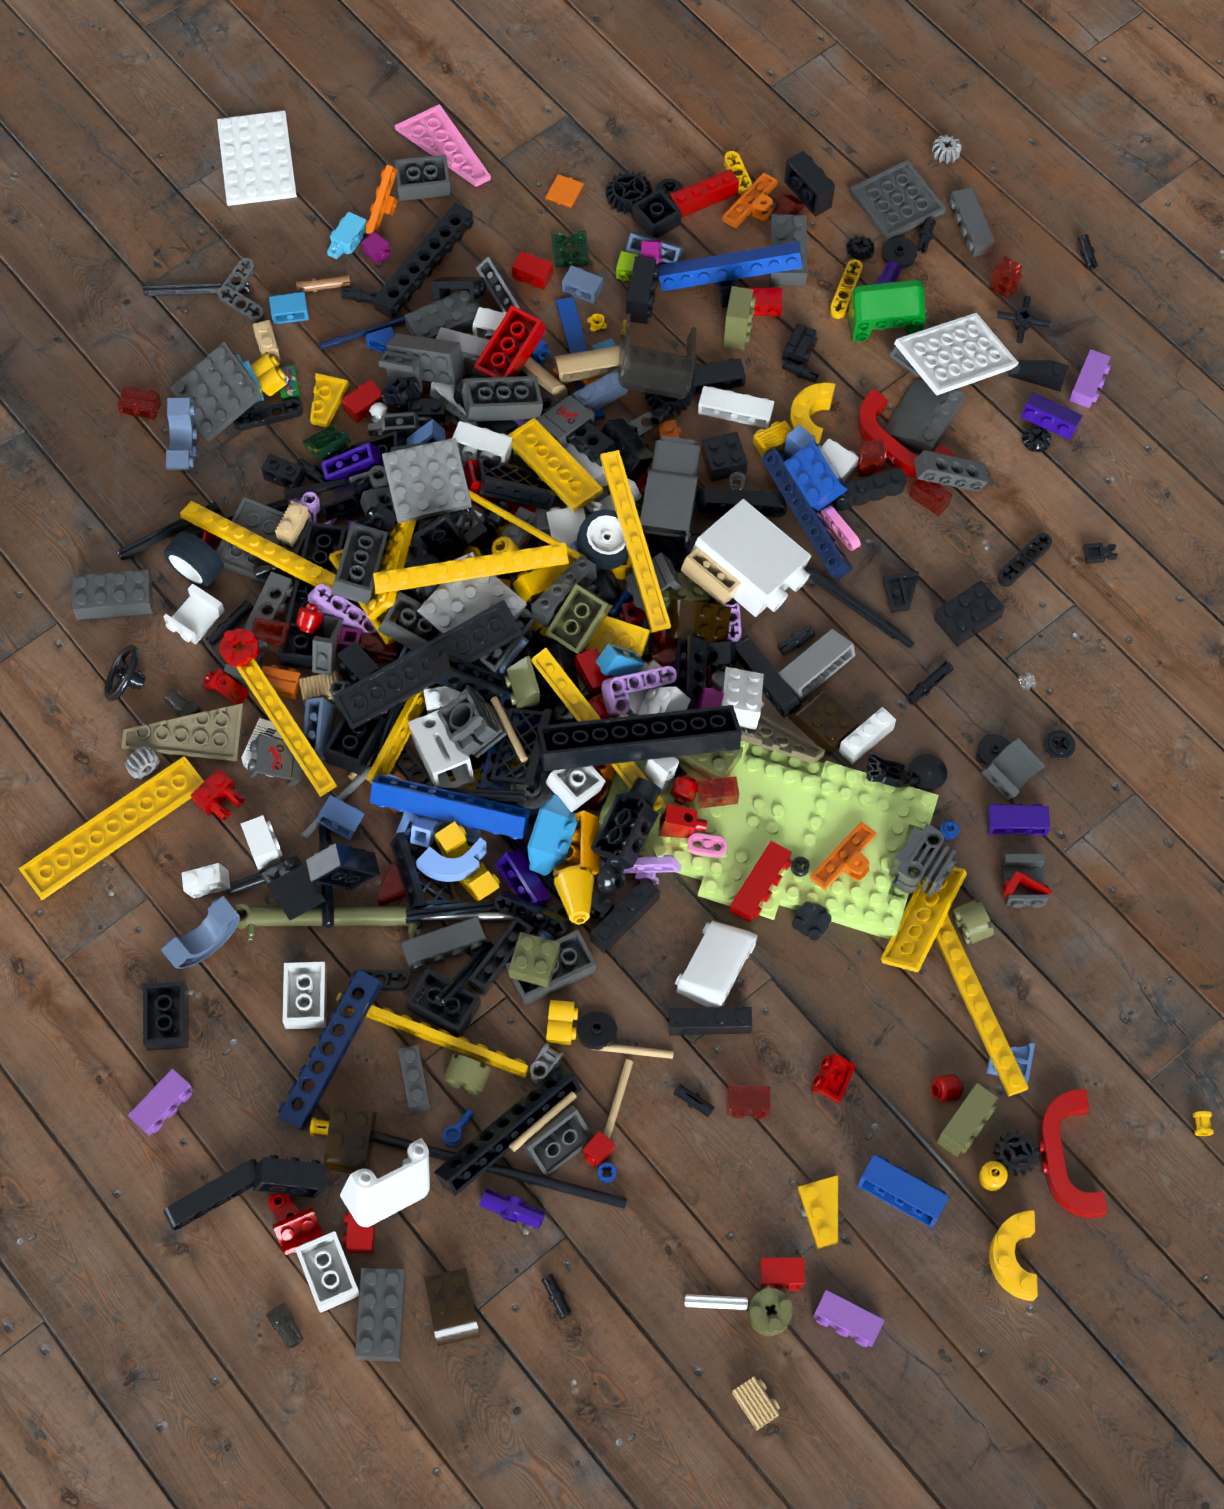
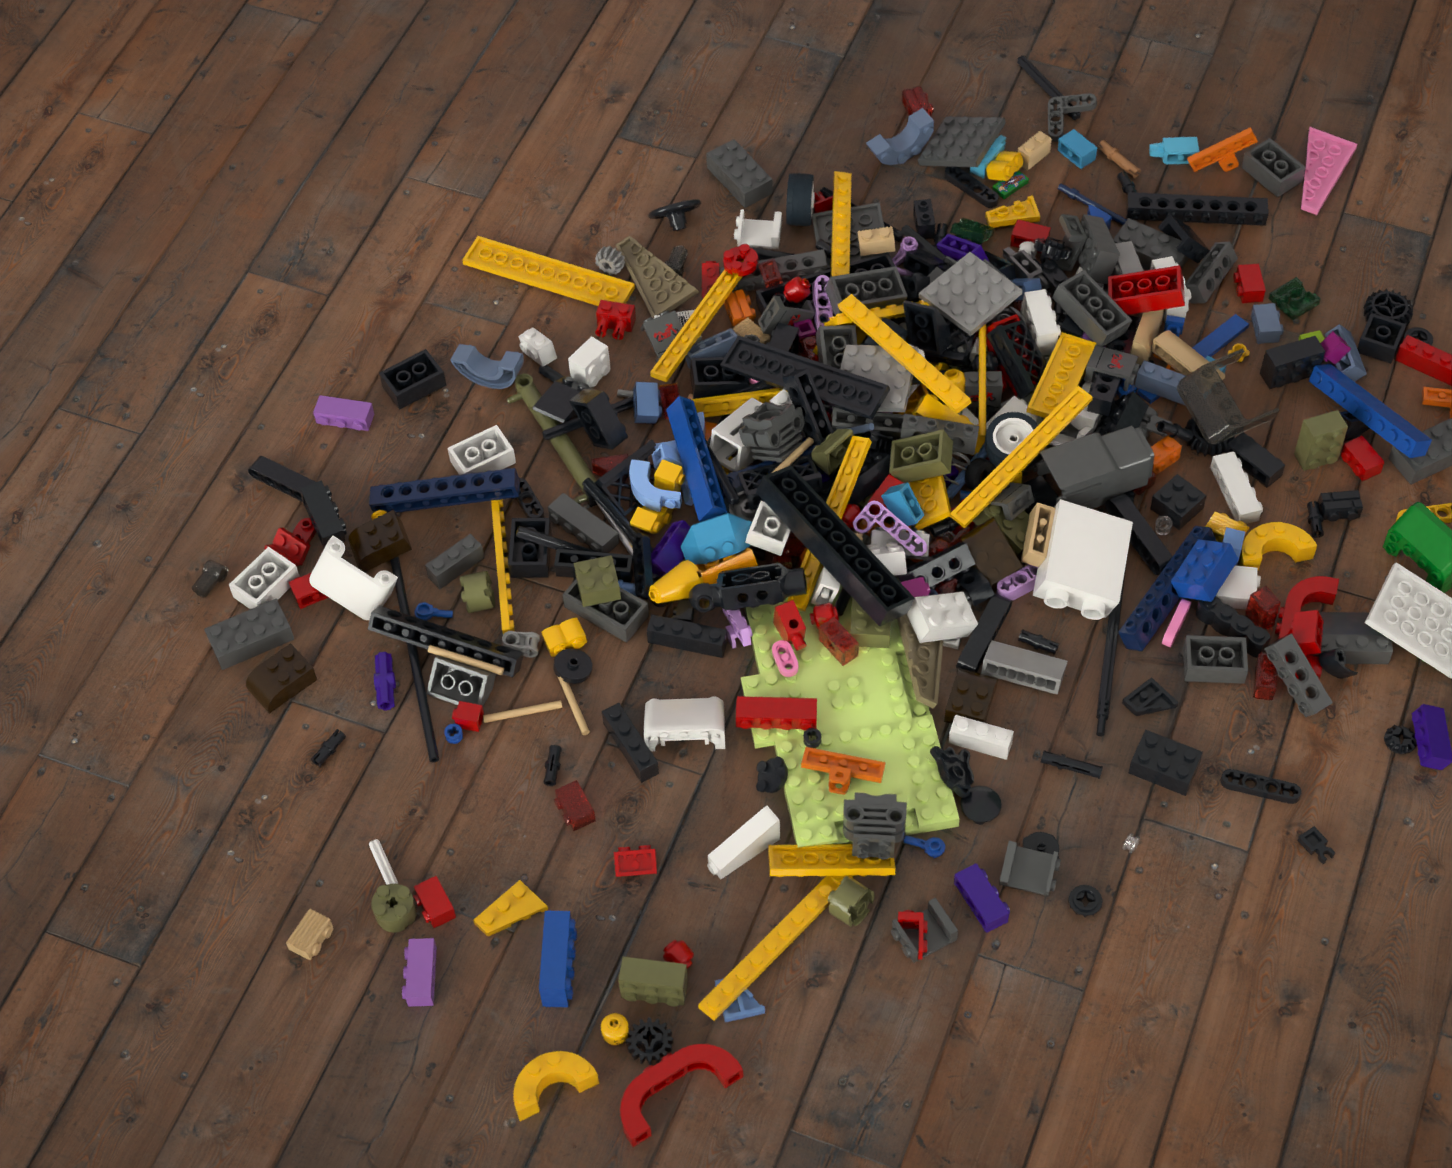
camera: 65 degrees right, 10 degrees down
(159, 535) = (818, 178): black axle -> none
(256, 158) = (1201, 62): white plate -> none
(352, 794) = (668, 394): none -> clear red slope
(376, 248) = (1181, 173): magenta brick -> none
(564, 191) = (1352, 269): orange piece -> none
(870, 977) = (745, 843): none -> white slope
(895, 520) = (1215, 659): none -> dark grey brick
(917, 439) = (1308, 631): none -> red brick
(951, 438) = (1334, 662): none -> black panel

